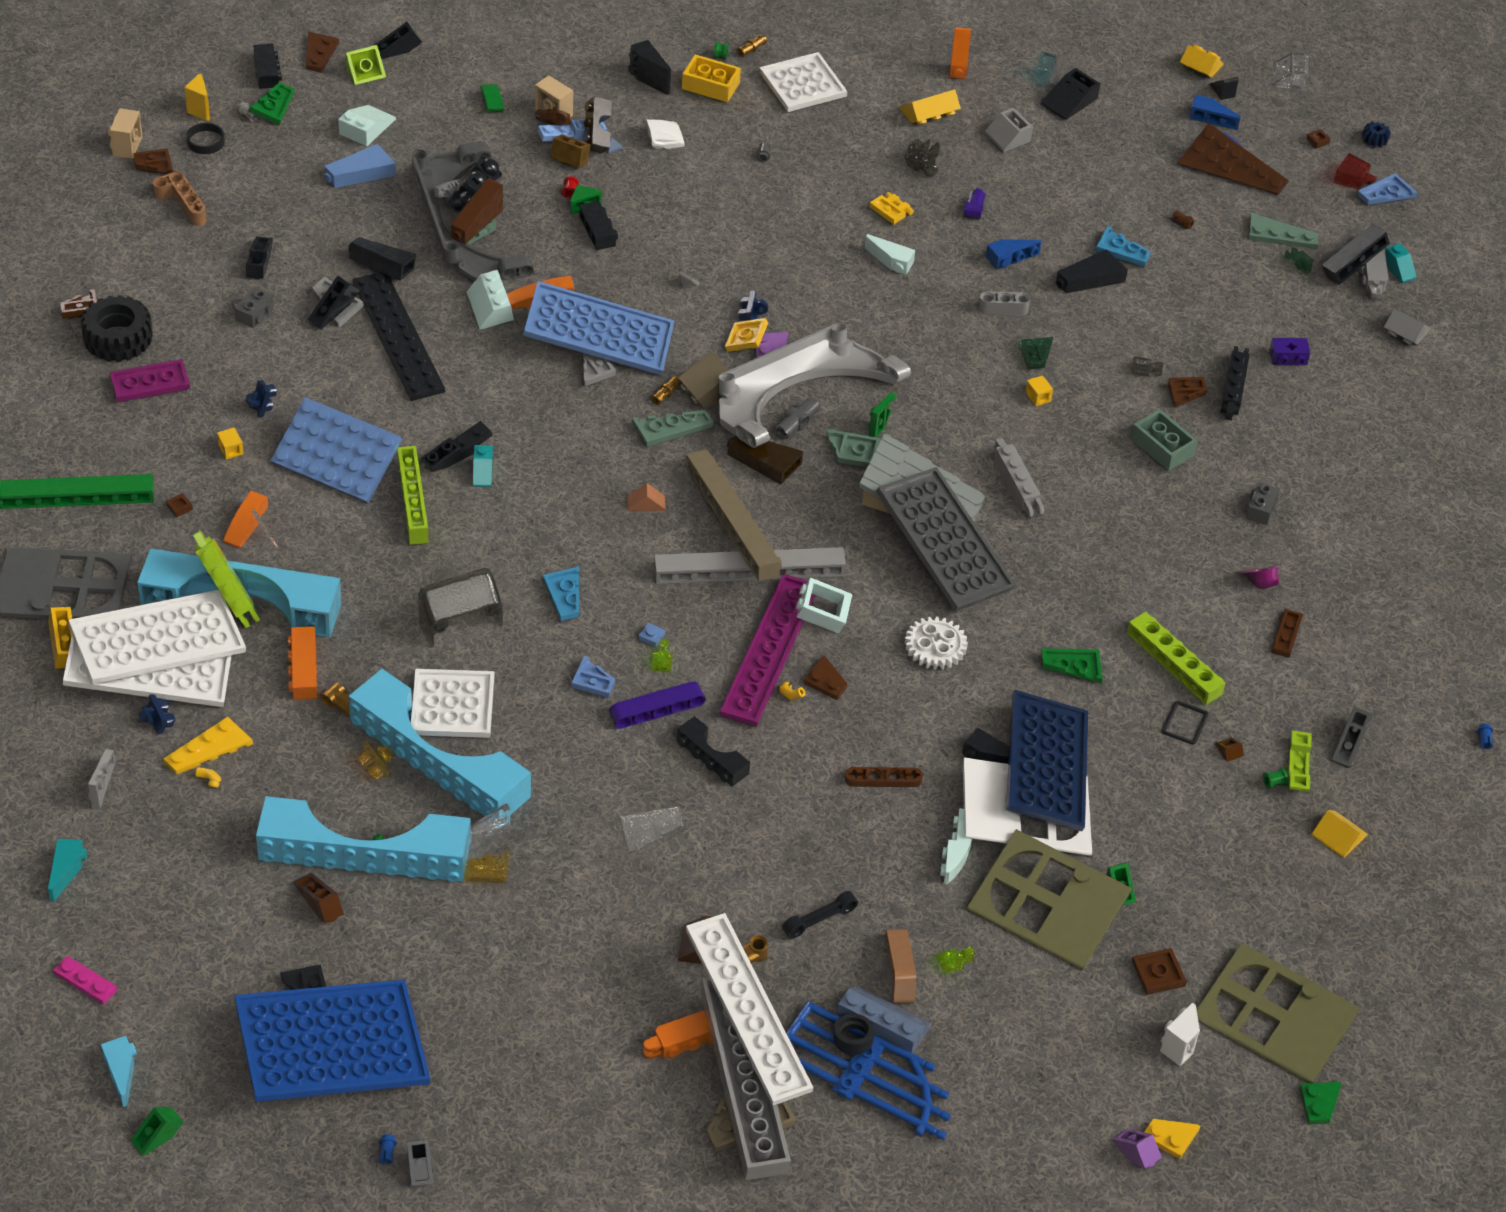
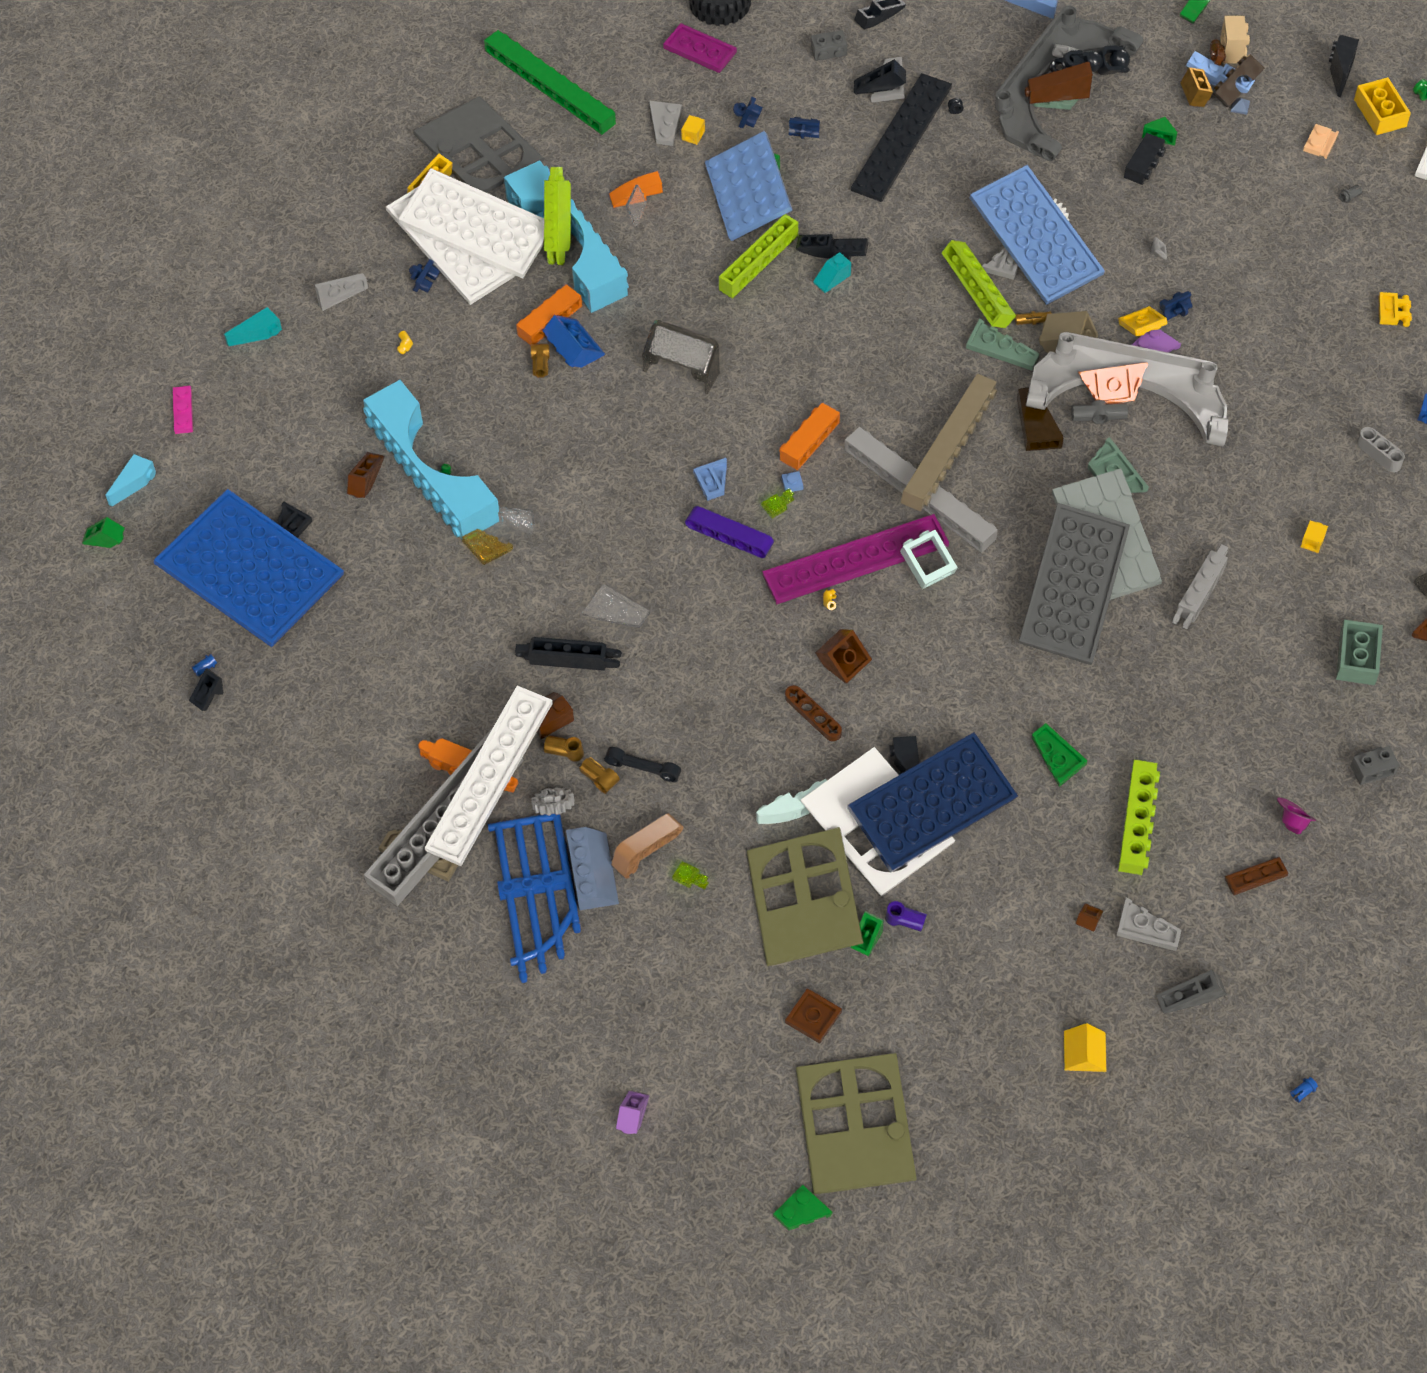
camera: 55 degrees right, 10 degrees up
(179, 505) = (610, 148): reddish brown plate -> none
(195, 453) = (665, 121): none -> light grey wing
(215, 741) = (435, 323): yellow wing -> none
(318, 379) = (804, 127): none -> dark blue hips
(347, 667) = (572, 341): none -> blue slope
(379, 767) = (510, 417): clear yellow hips -> none
(382, 258) = (958, 73): black slope -> none
(411, 284) = (957, 102): none -> black bush
(452, 703) = (604, 419): white plate -> none
(483, 782) = (550, 392): medium azure arch -> none
(489, 300) = (994, 158): light aqua slope -> none
(523, 296) = (1048, 180): orange slope -> none
(564, 592) = (772, 404): dark azure wing -> none
(569, 186) = (1166, 112): red bush -> none
(600, 394) = (978, 284): none -> lime brick
(623, 592) = (809, 436): none -> orange brick
(646, 499) = (914, 386): nougat slope -> none
(663, 886) = (568, 653): none -> black hinge
(664, 134) = (1289, 124): white slope -> none
(697, 131) = (1321, 141): none -> light nougat plate
(728, 765) = (723, 575): black arch -> none
(785, 389) = (1114, 383): none -> wing
(797, 995) = (552, 801): none -> light grey gear
(805, 949) = (603, 778): none -> pearl gold piece
(826, 679) = (867, 612): reddish brown wing -> none
(851, 719) = (844, 655): none -> reddish brown slope
(853, 1021) = (549, 845): black tyre -> none
(880, 415) = (1156, 456): green wing -> none
(890, 254) = (1343, 350): light aqua slope -> none
(936, 643) = (991, 648): white gear -> none
(1036, 351) = (1356, 506): clear green wing -> none
(1127, 852) = (906, 917): none -> dark purple piece
(1171, 715) = (1086, 883): black piece -> none
(1173, 1136) = (669, 1128): yellow wing -> none
(1181, 1035) = (761, 1070): white slope -> none
(1271, 724) = (1146, 928): none -> light grey wing
(1275, 778) = (1089, 967): green bush -> none
(1299, 761) = (1124, 975): lime slope -> none

